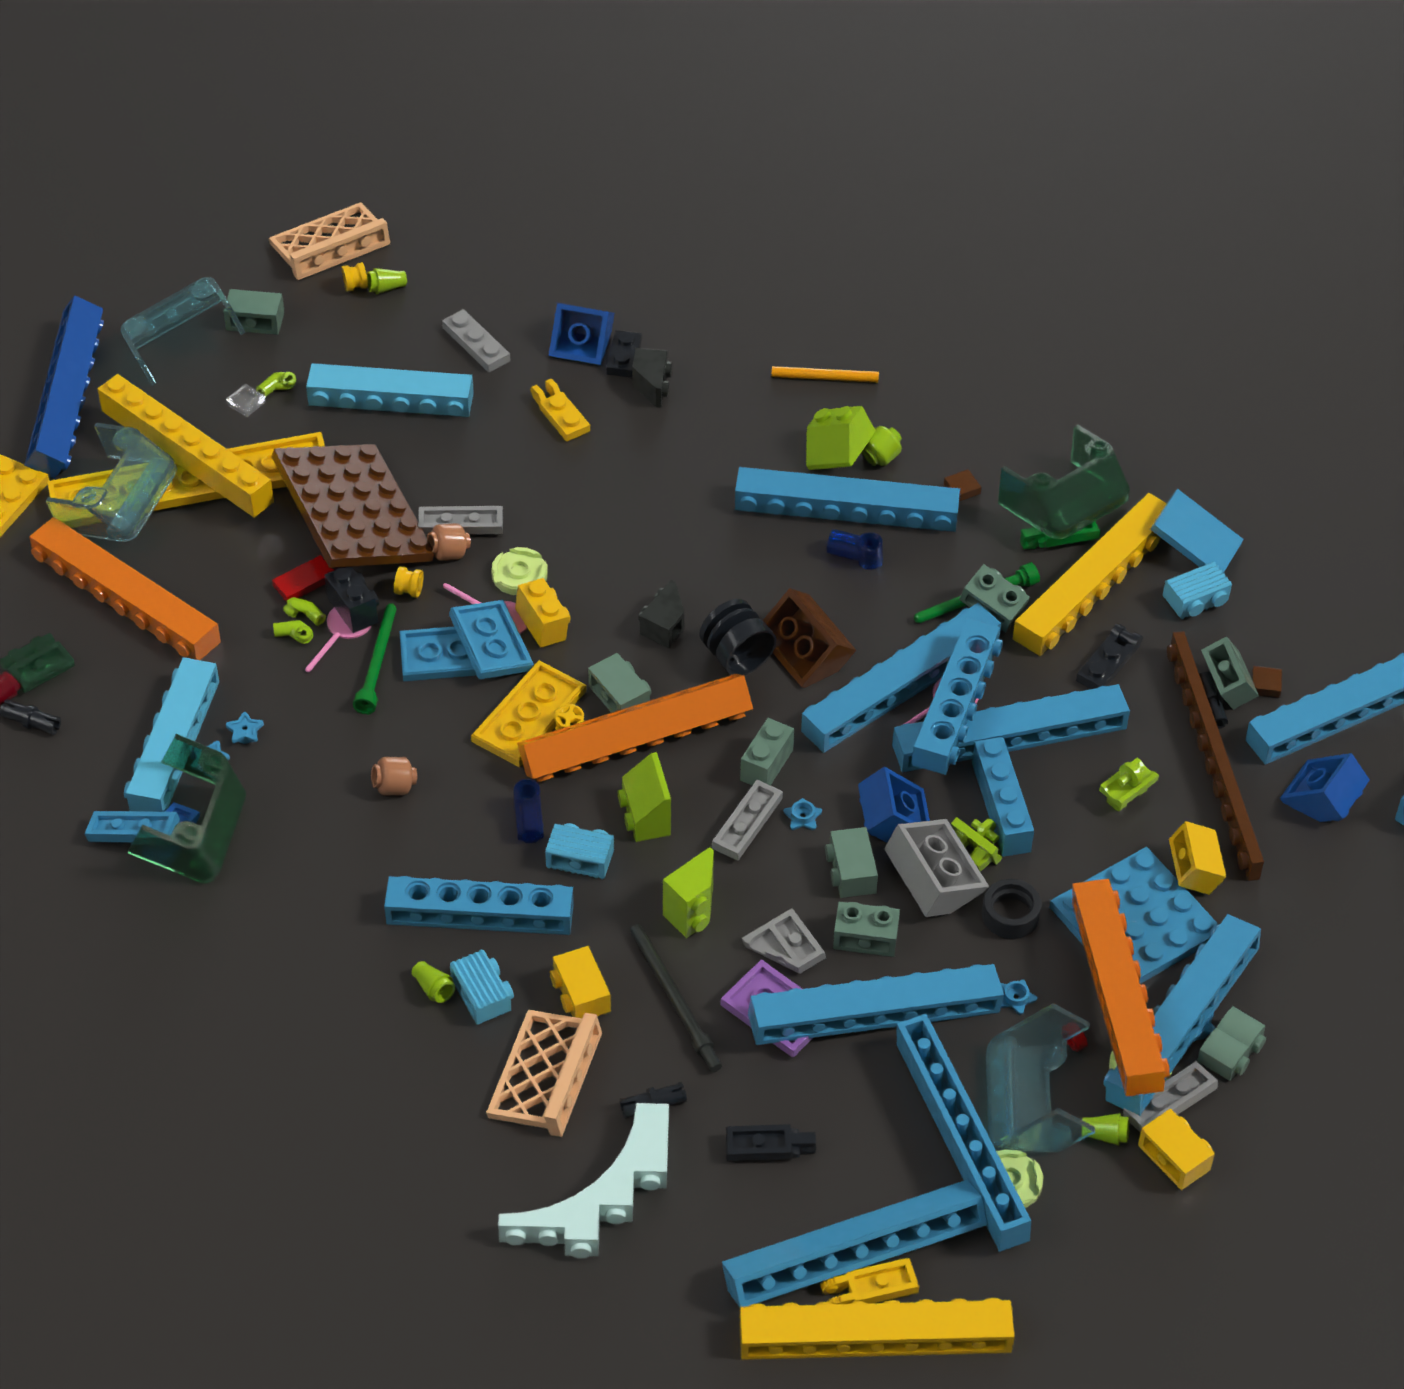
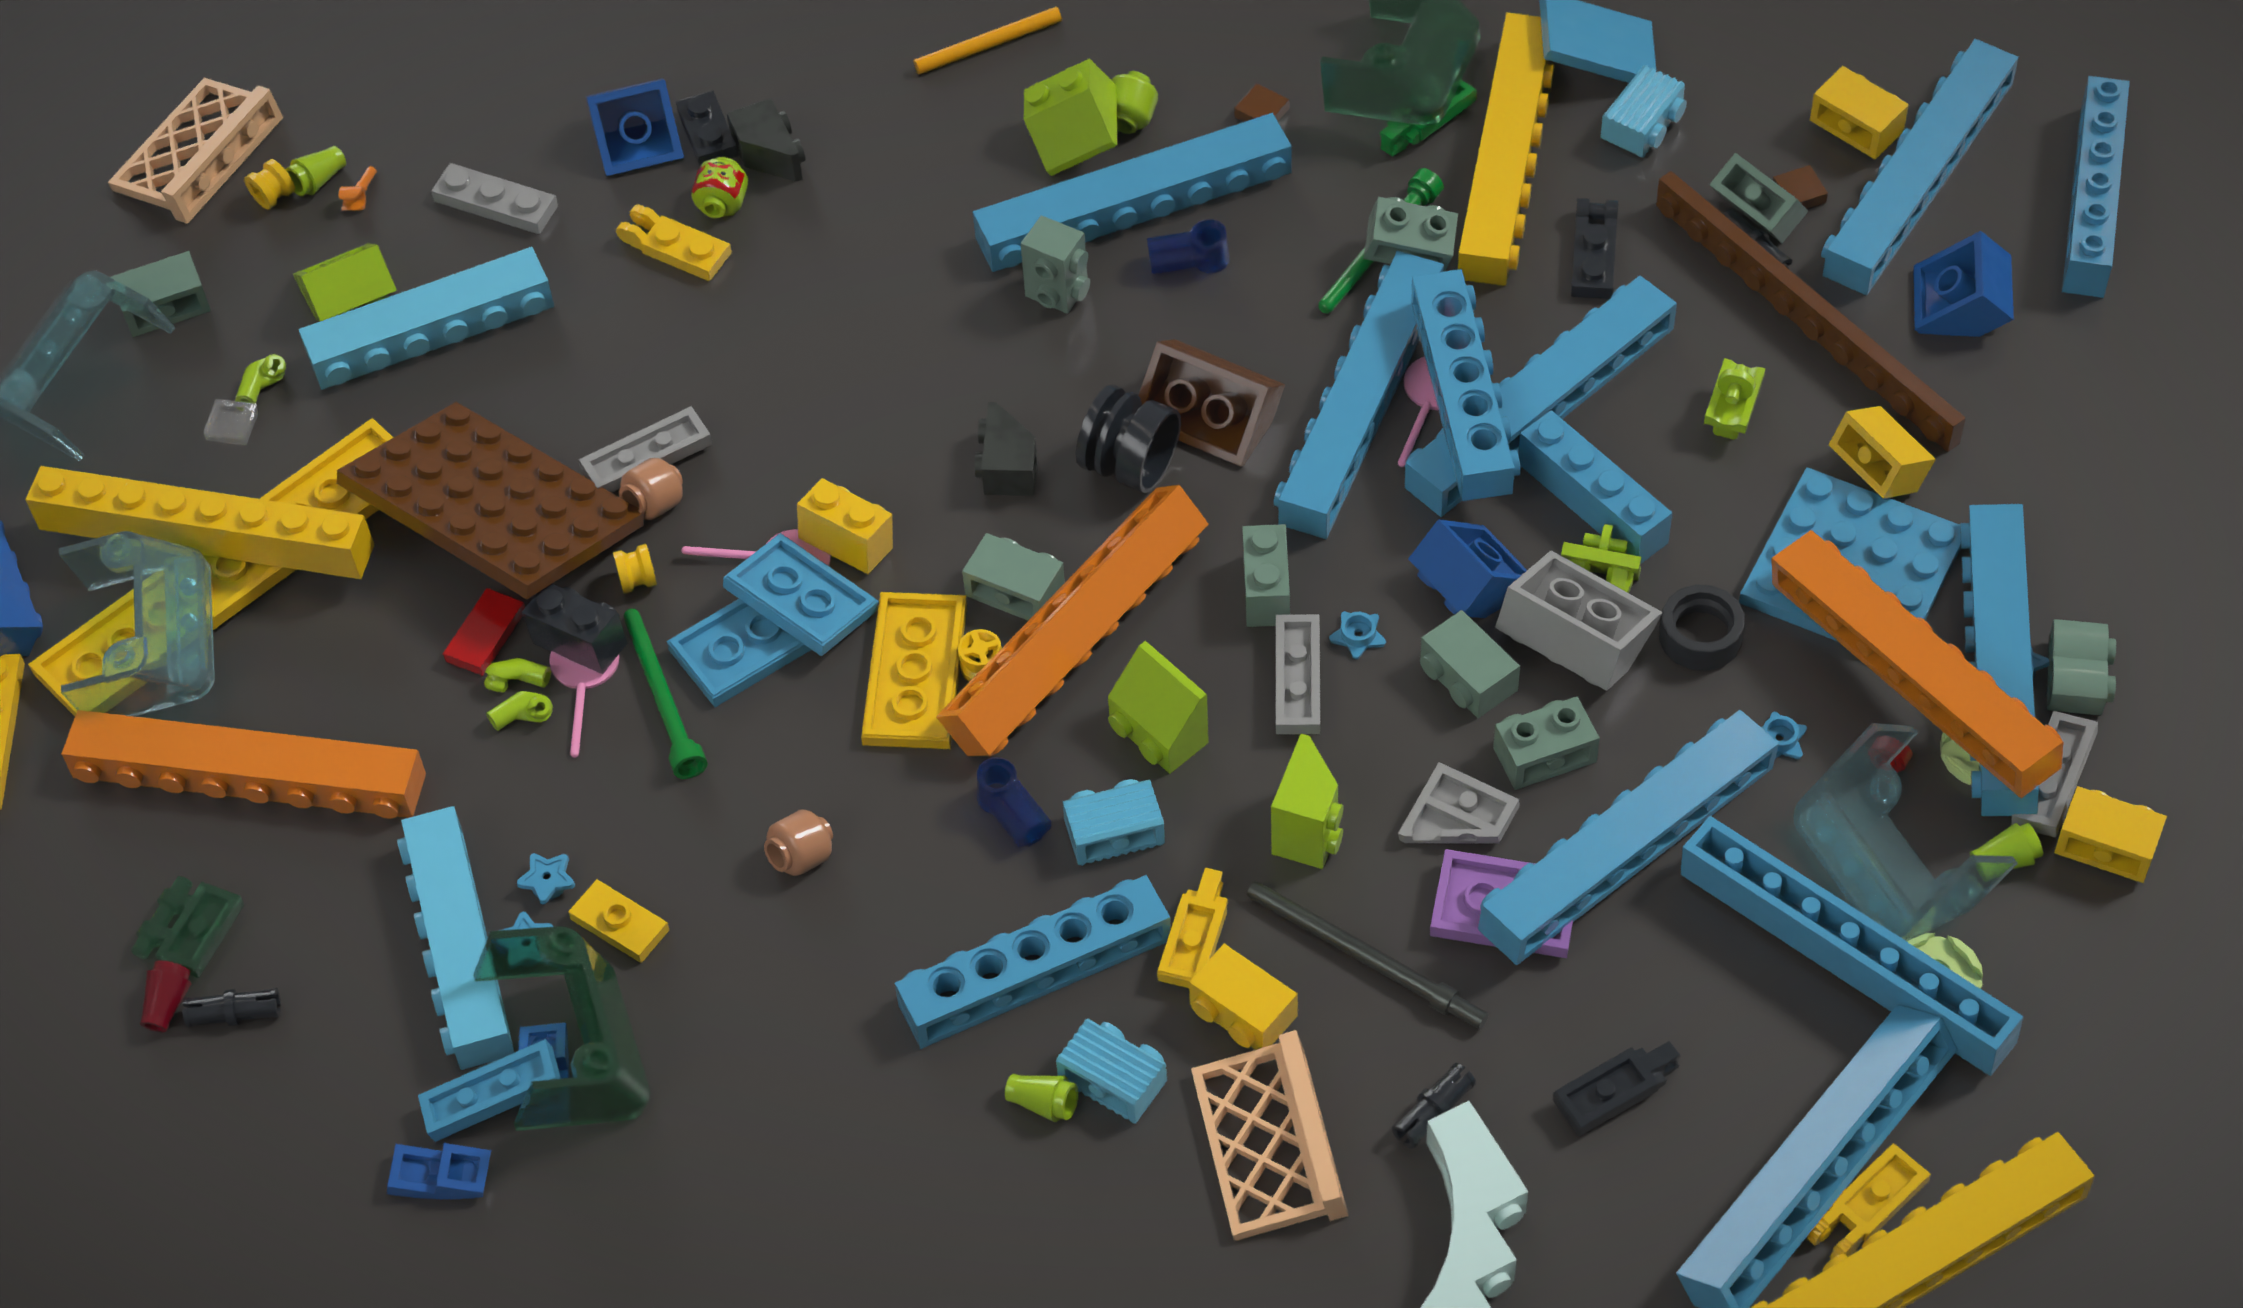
camera: 25 degrees left, 5 degrees up
(77, 859) = (437, 1174): none -> blue slope
(268, 772) = (619, 921): none -> yellow plate
(358, 349) = (345, 282): none -> lime slope
(399, 305) = (354, 196): none -> orange hand
(517, 568) = (768, 497): yellowish green tile -> none
(586, 930) = (1194, 931): none -> yellow hinge
(606, 390) = (721, 186): none -> lime head
(765, 518) = (1055, 264): none -> sand green brick
(1334, 650) = (1859, 112): none -> yellow brick

